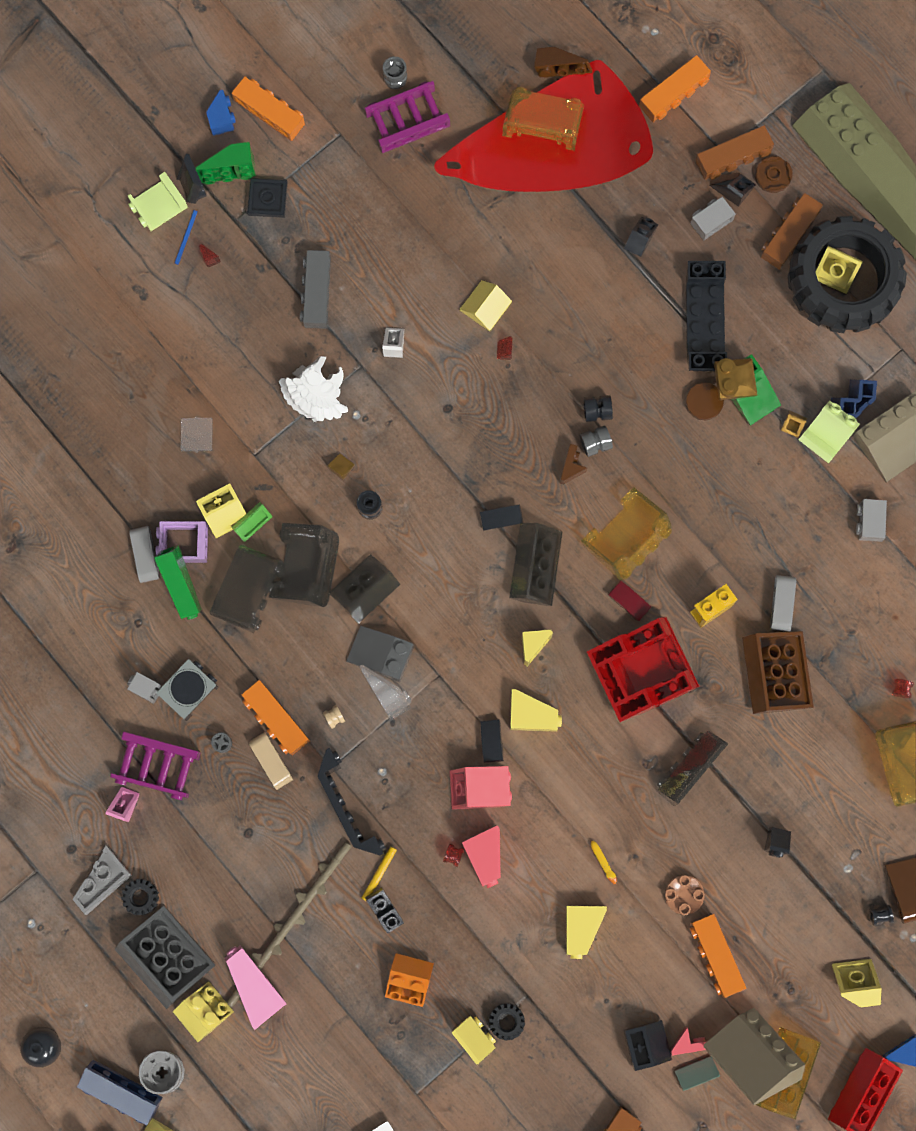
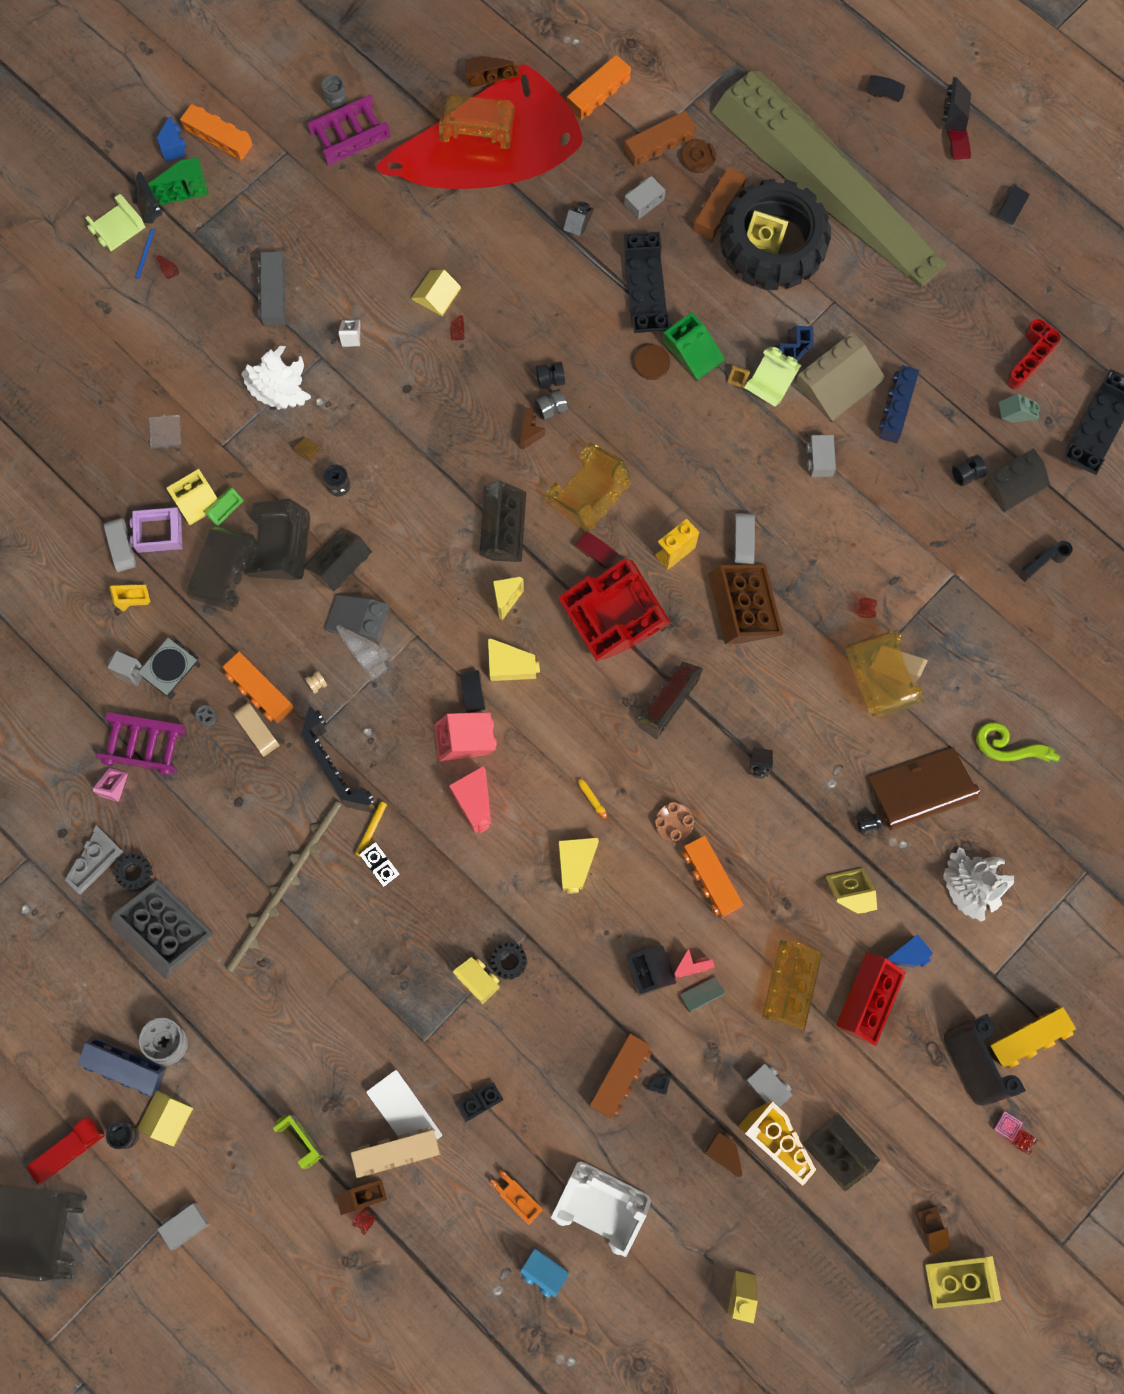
camera: 10 degrees left, 5 degrees down
(40, 1047) = (39, 1030): black cylinder -> none
(152, 610) = (129, 595): none -> yellow slope
(178, 582) = (153, 564): green slope -> none
(203, 1011) = (202, 978): light yellow slope -> none
(255, 990) = (252, 950): bright pink slope -> none
(267, 197) = (220, 211): black plate -> none
(409, 980) = (408, 928): orange slope -> none
(453, 855) = (443, 803): clear red wheel -> none
(501, 517) = (465, 482): black slope -> none
(735, 189) = (663, 171): black slope -> none
(735, 378) = (678, 334): pearl gold slope -> none
(755, 1057) = (758, 967): dark tan slope -> none

